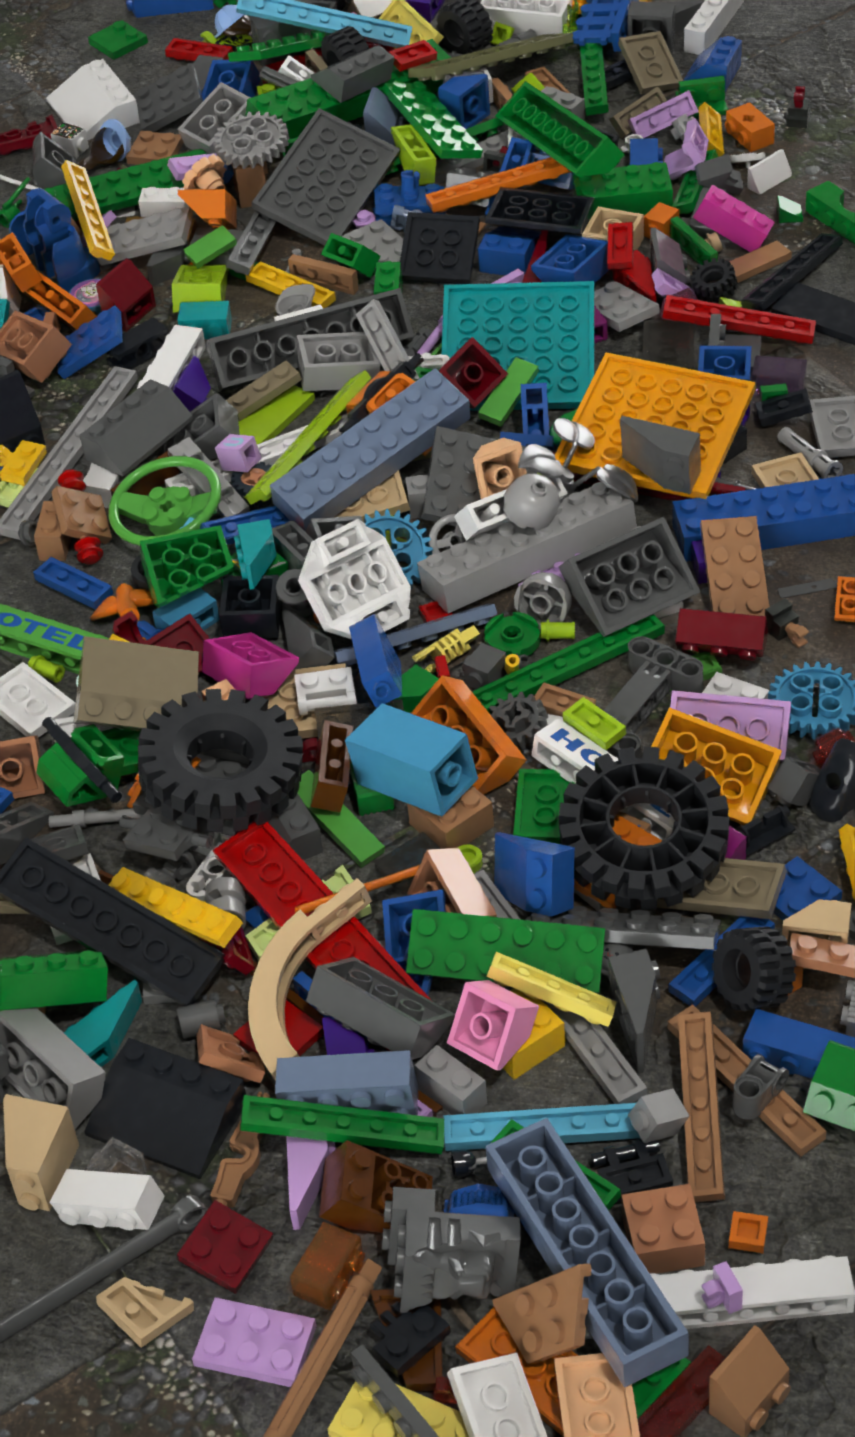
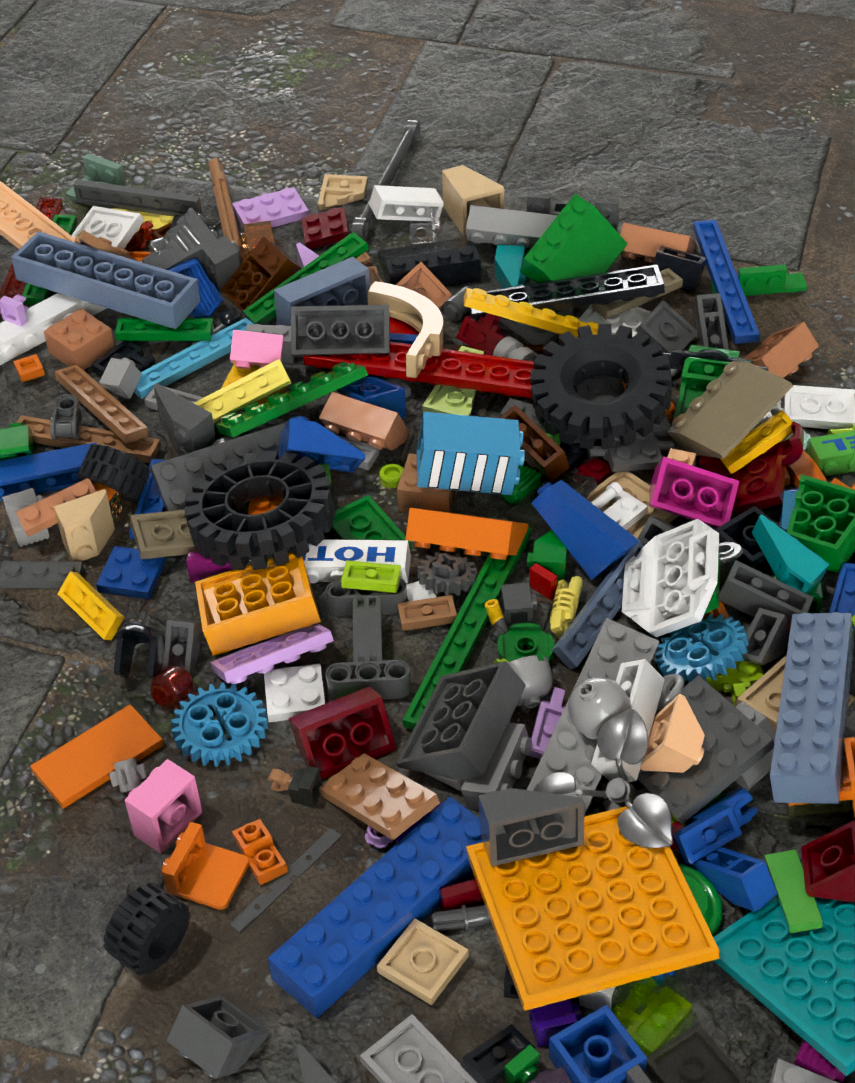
camera: 140 degrees right, 0 degrees up
(370, 886) = (426, 390): orange axle -> none
(766, 829) = (186, 602): black hinge -> none
(817, 458) = (409, 1003): light grey pin -> none

